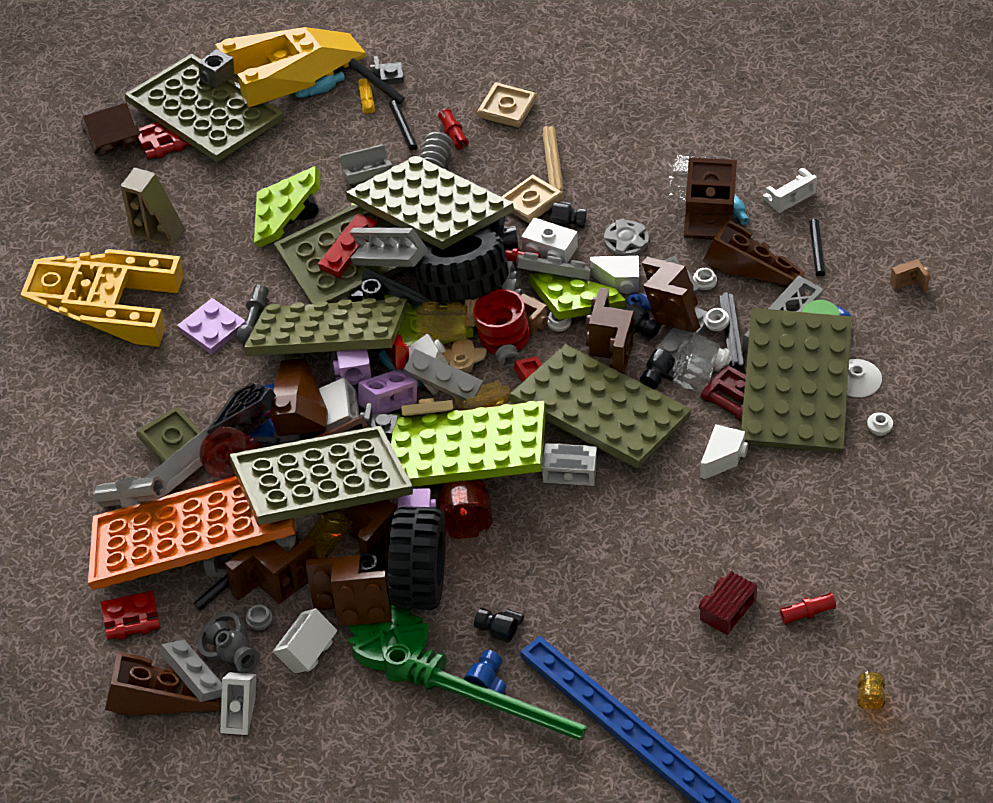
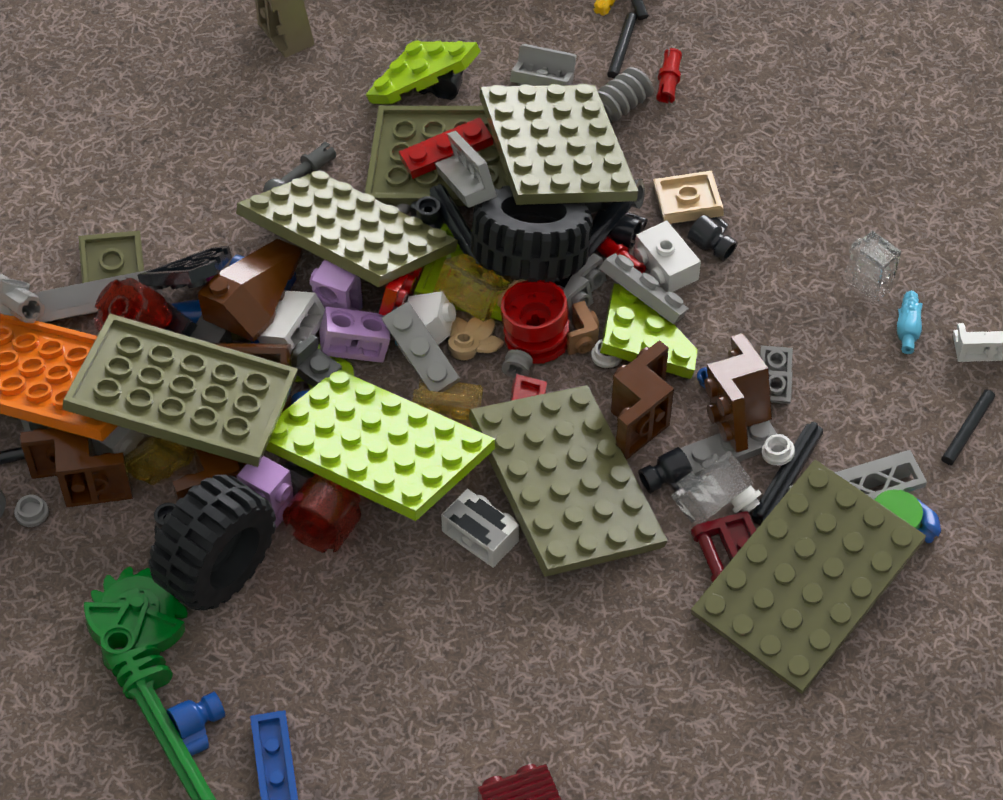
camera: 30 degrees right, 5 degrees up
(92, 285) = (157, 53): yellow wedge -> none
(211, 326) = (250, 162): lavender plate -> none
(305, 641) = (45, 567): white brick -> none
(353, 594) = (124, 535): reddish brown bracket -> none
(427, 406) = (378, 375): tan plate -> none
(501, 625) = (257, 671): black piece -> none
(507, 105) = (748, 78): tan plate -> none
(552, 157) = (748, 166): tan axle -> none
(617, 272) = (711, 331): white slope -> none
(625, 236) = (759, 297): light grey wheel -> none
(642, 322) = (691, 399): black piece -> none
(705, 278) = (809, 387): white plate -> none
(709, 196) = (875, 302): reddish brown bracket -> none
(723, 451) = (659, 612): white slope -> none
(738, 254) = (869, 387): reddish brown wedge -> none
(865, 382) = (895, 624): white dish -> none
(880, 428) = (867, 692): white plate -> none

